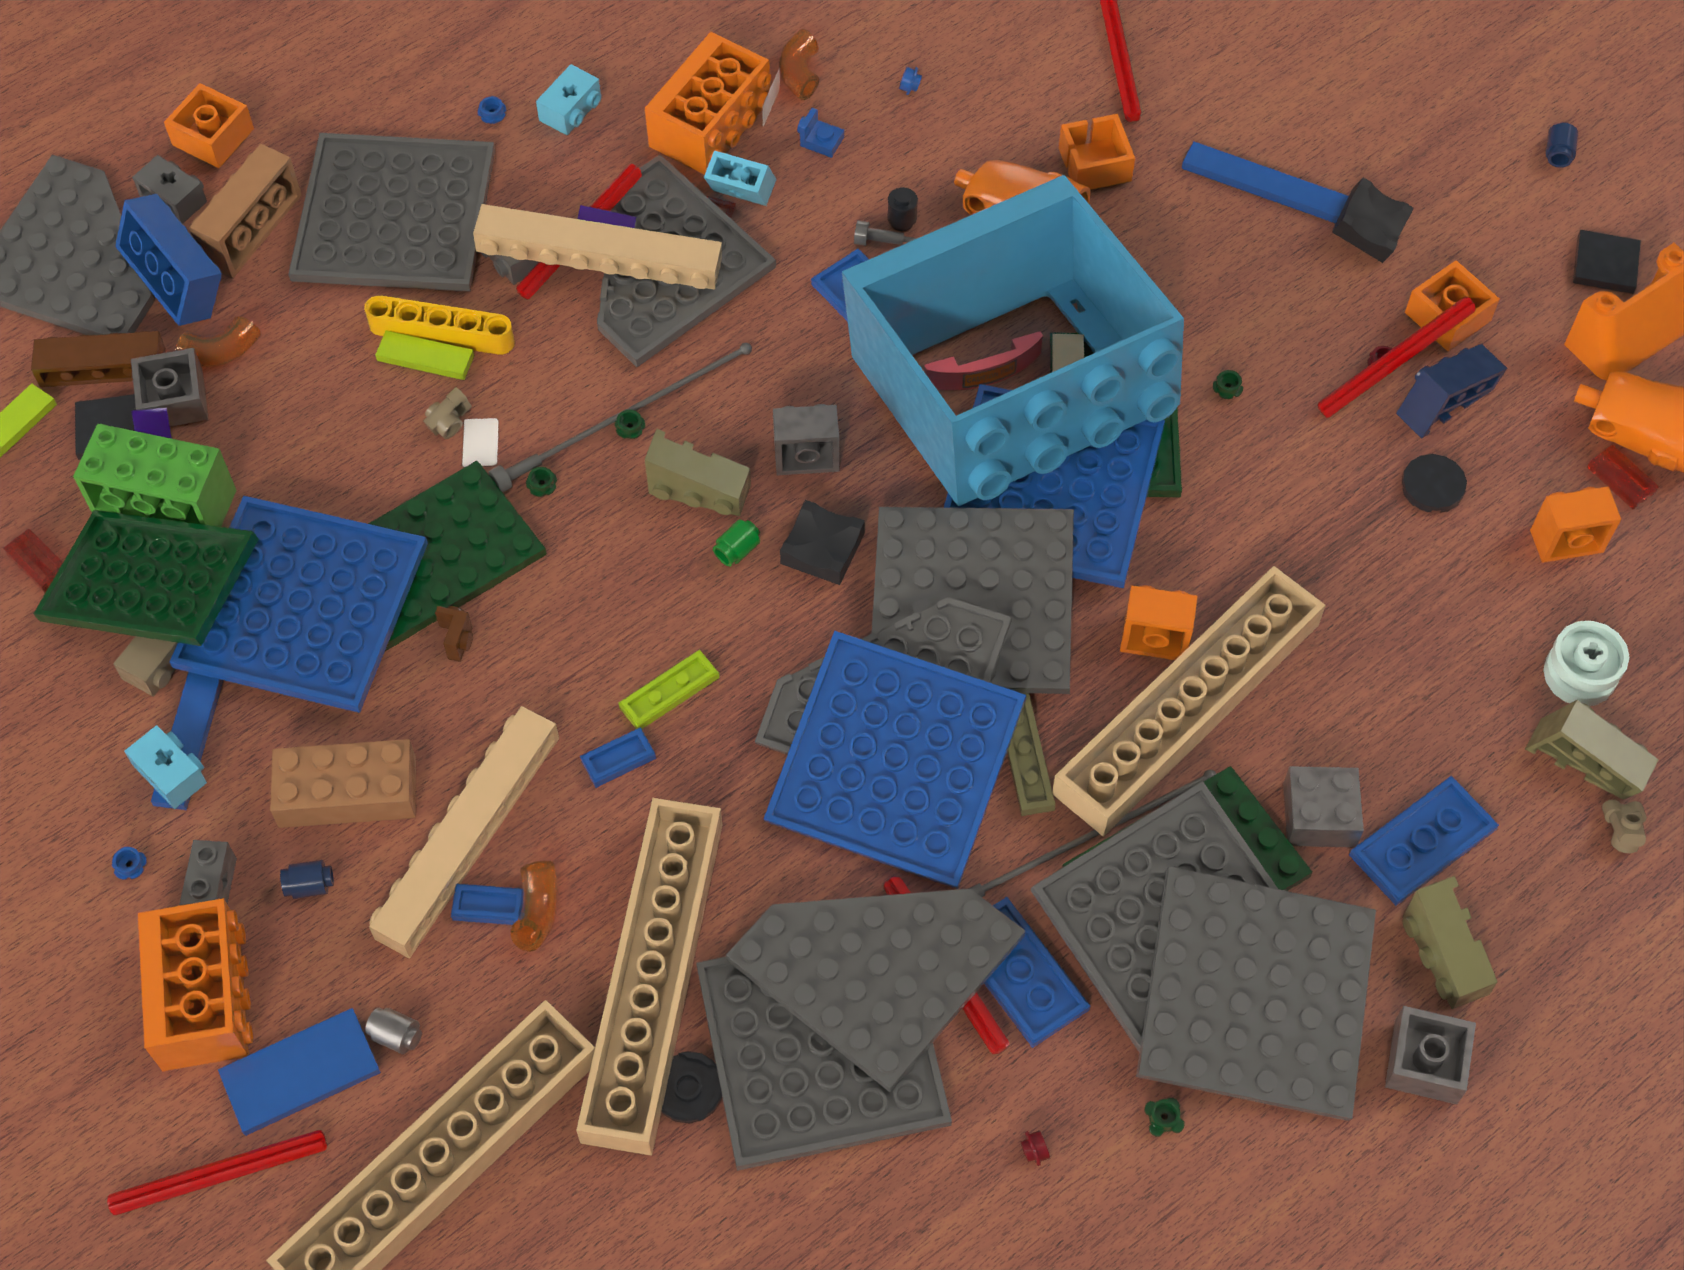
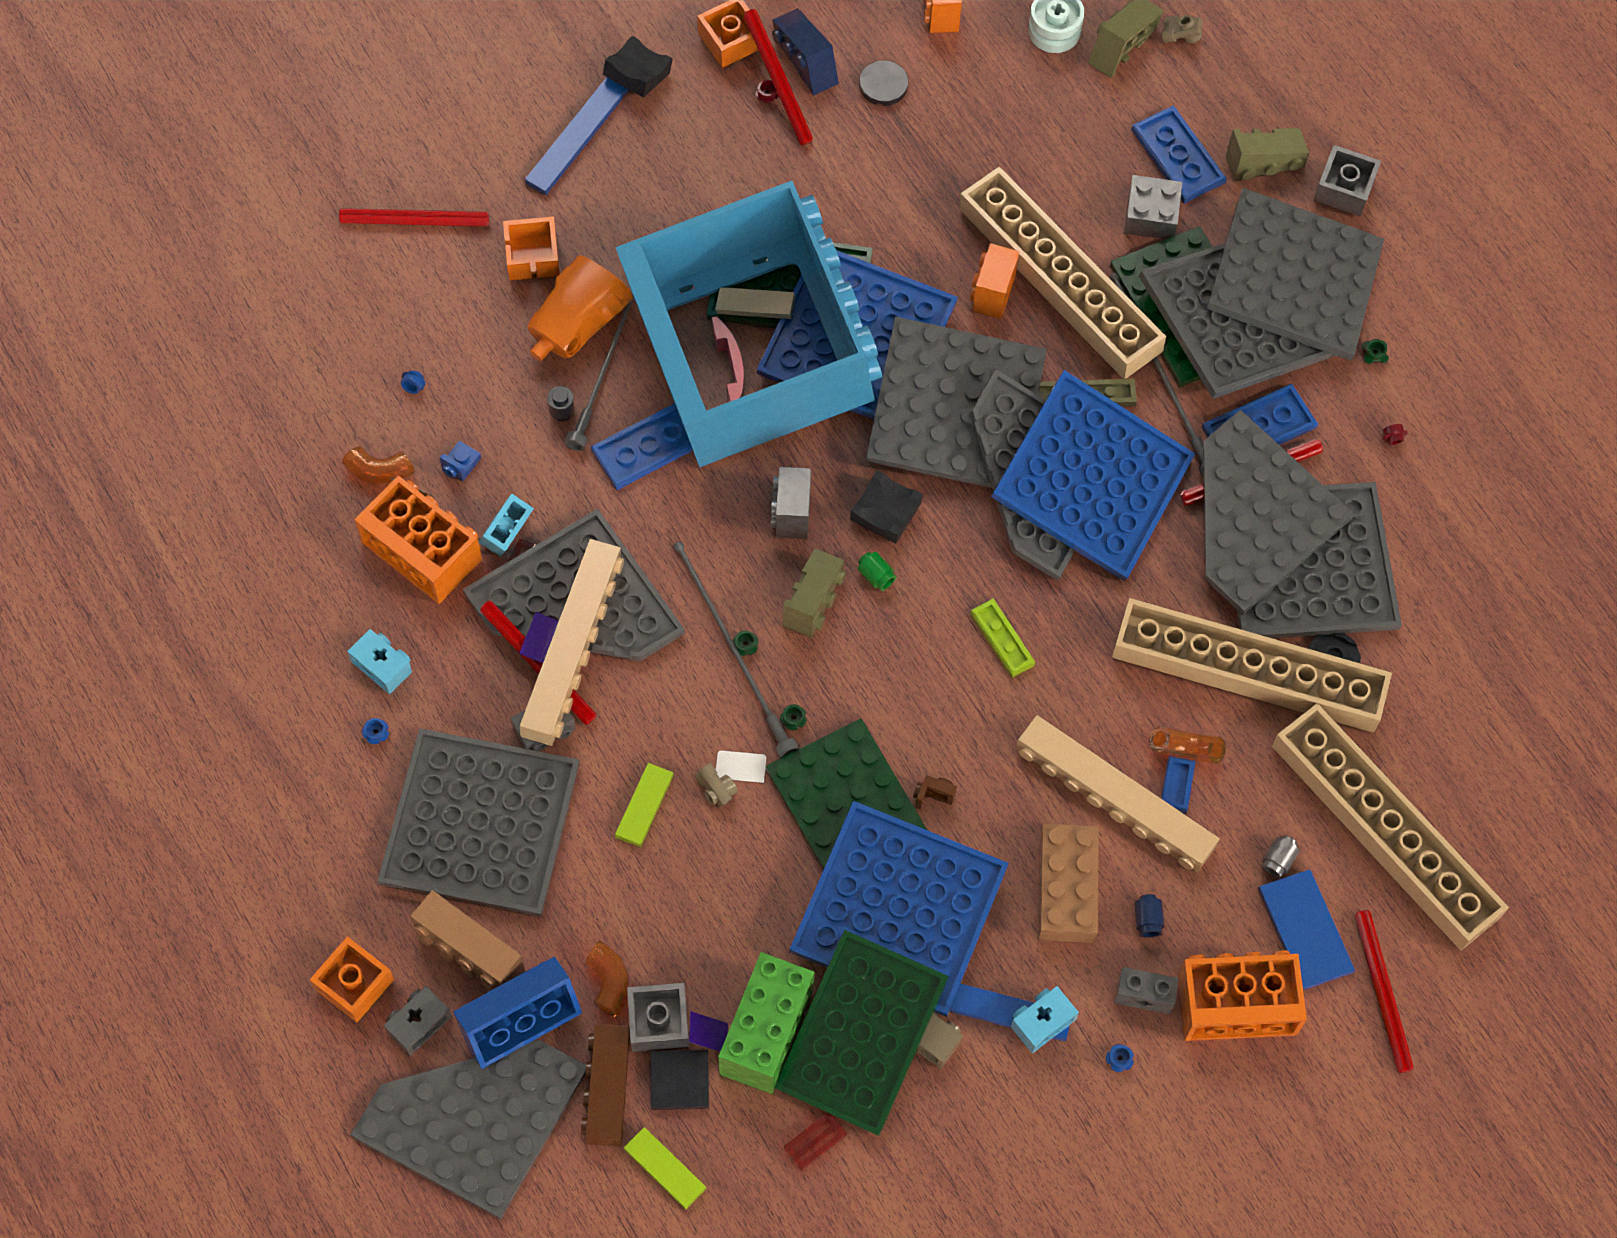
camera: 85 degrees left, 5 degrees up
(441, 323) = (618, 775): yellow beam -> none
(618, 757) = (1058, 680): blue tile -> none

